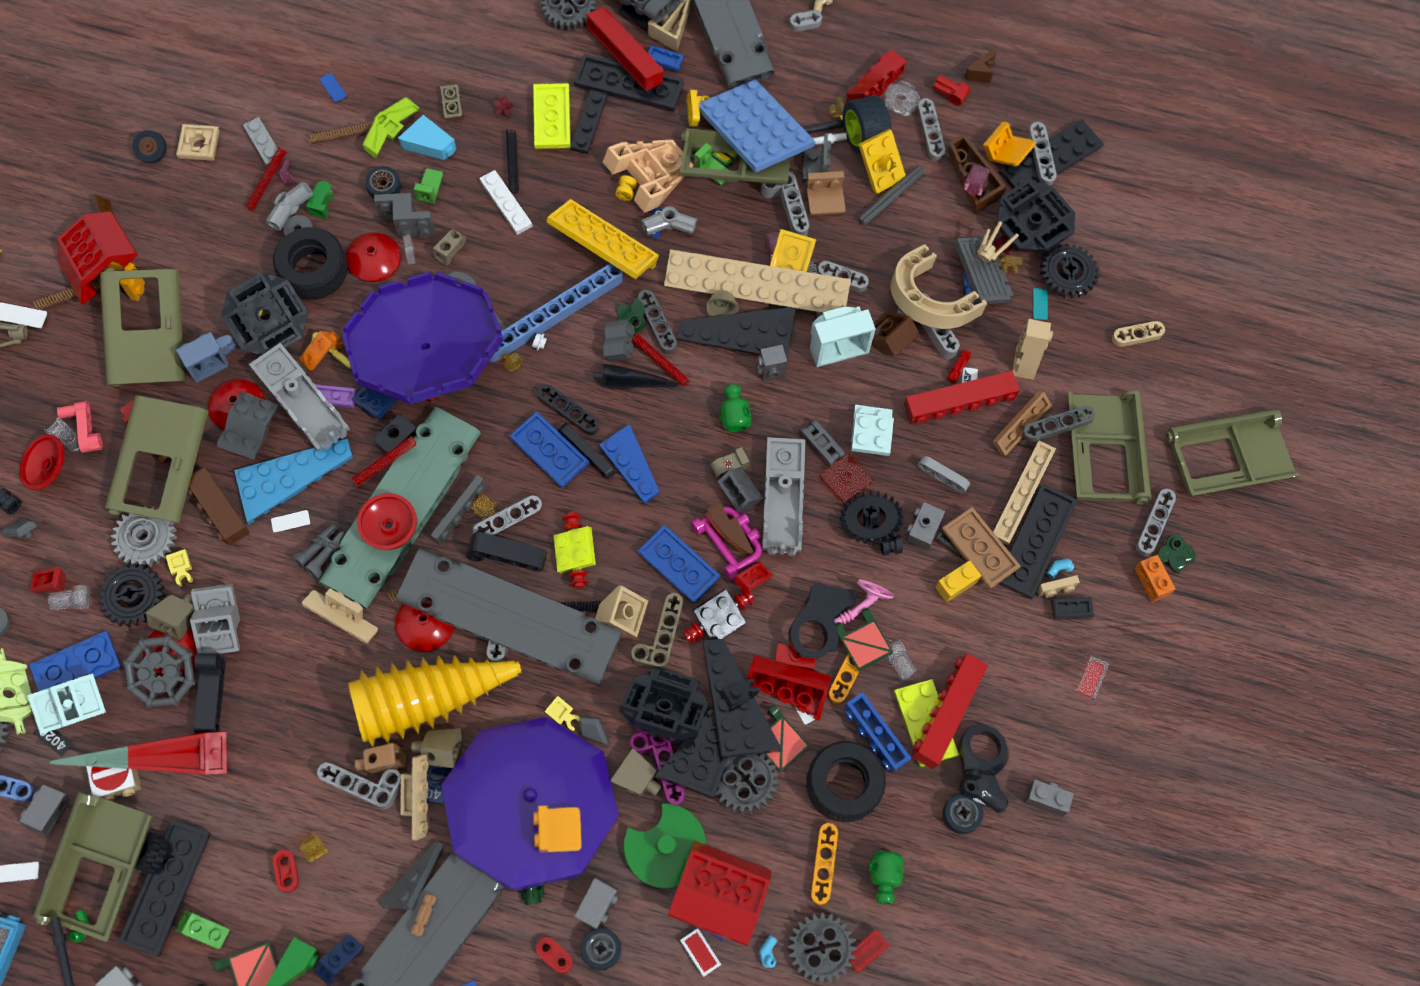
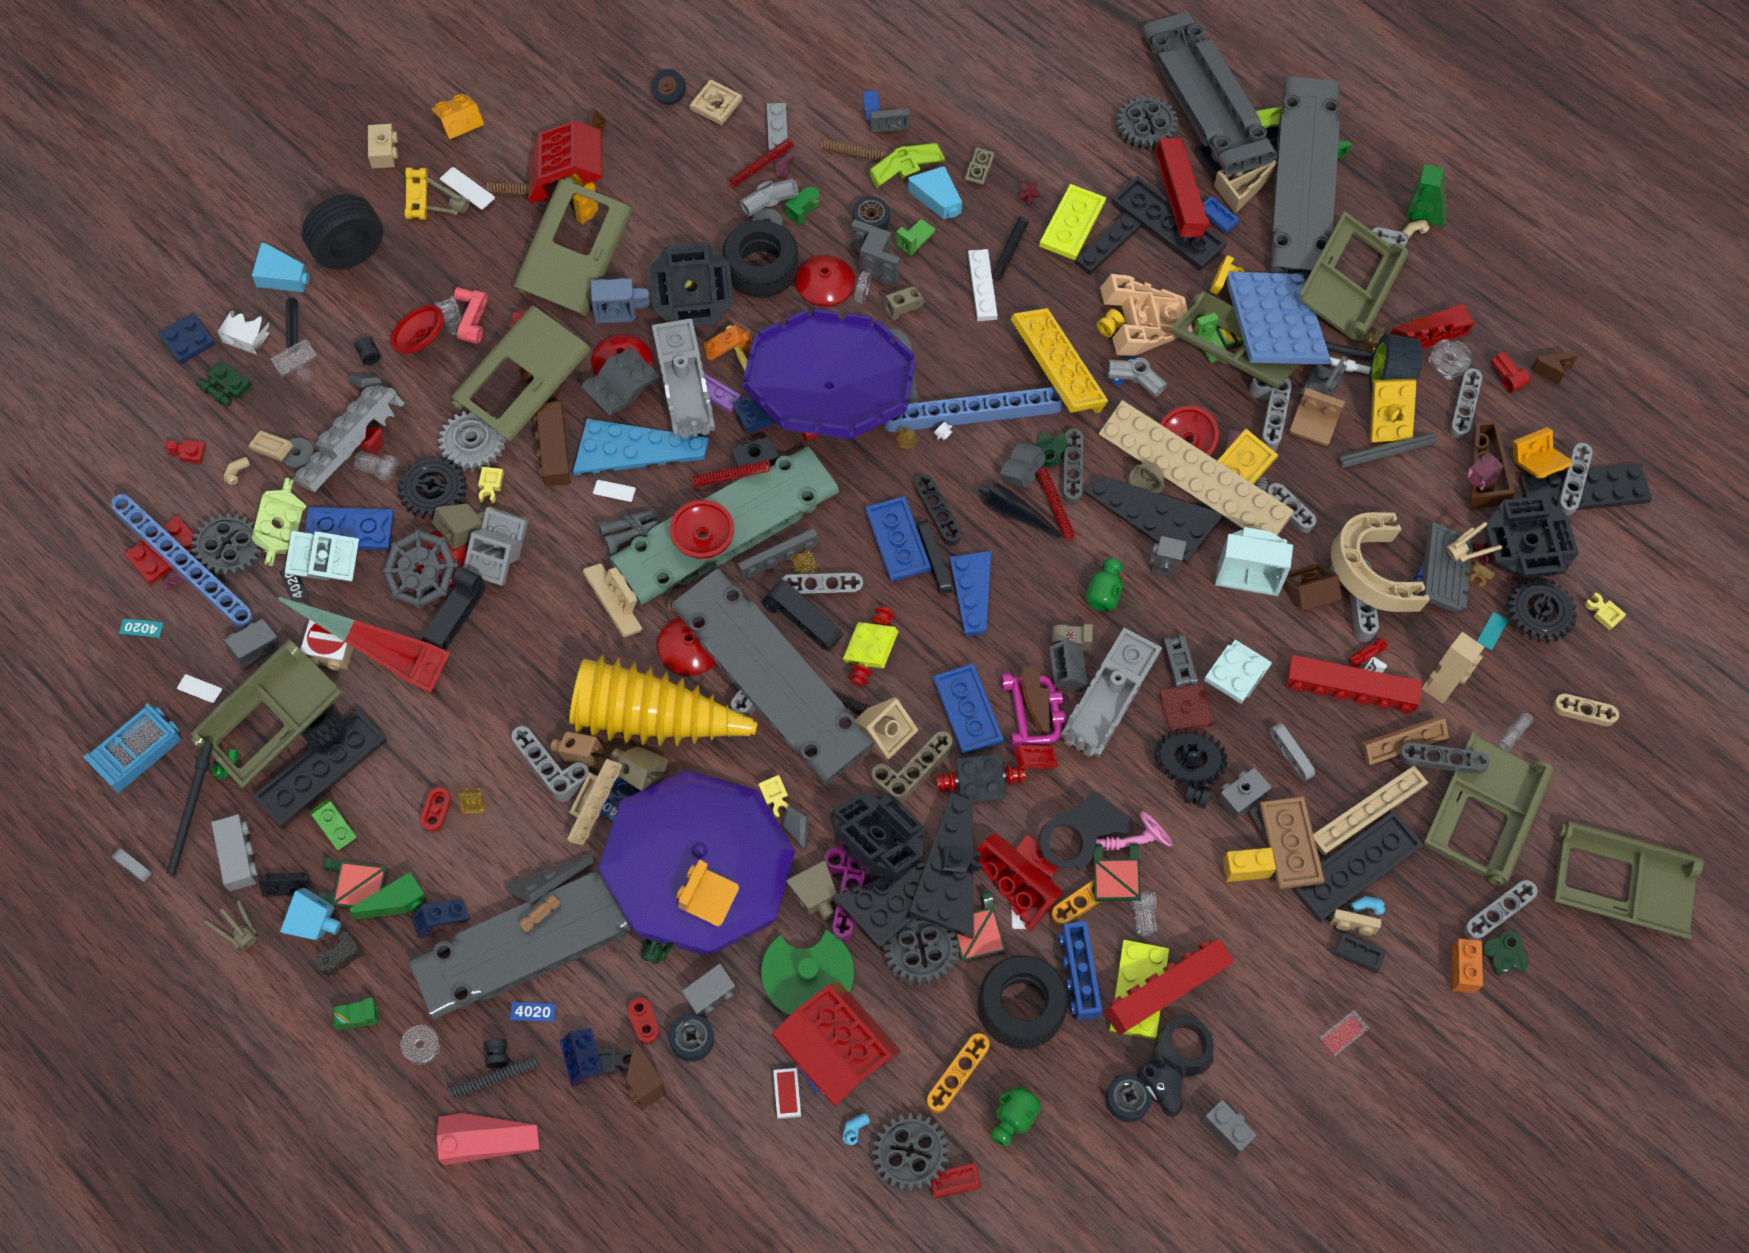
camera: 30 degrees right, 5 degrees down
(29, 586) = (346, 434): none -> light grey piece
(356, 94) = (889, 120): none -> dark grey bracket
(737, 242) = (1195, 424): none -> red dish
(792, 86) = (1338, 297): none -> olive piece
(1097, 376) = (1515, 731): none -> clear pin
(1116, 250) = (1607, 614): none -> light yellow plate

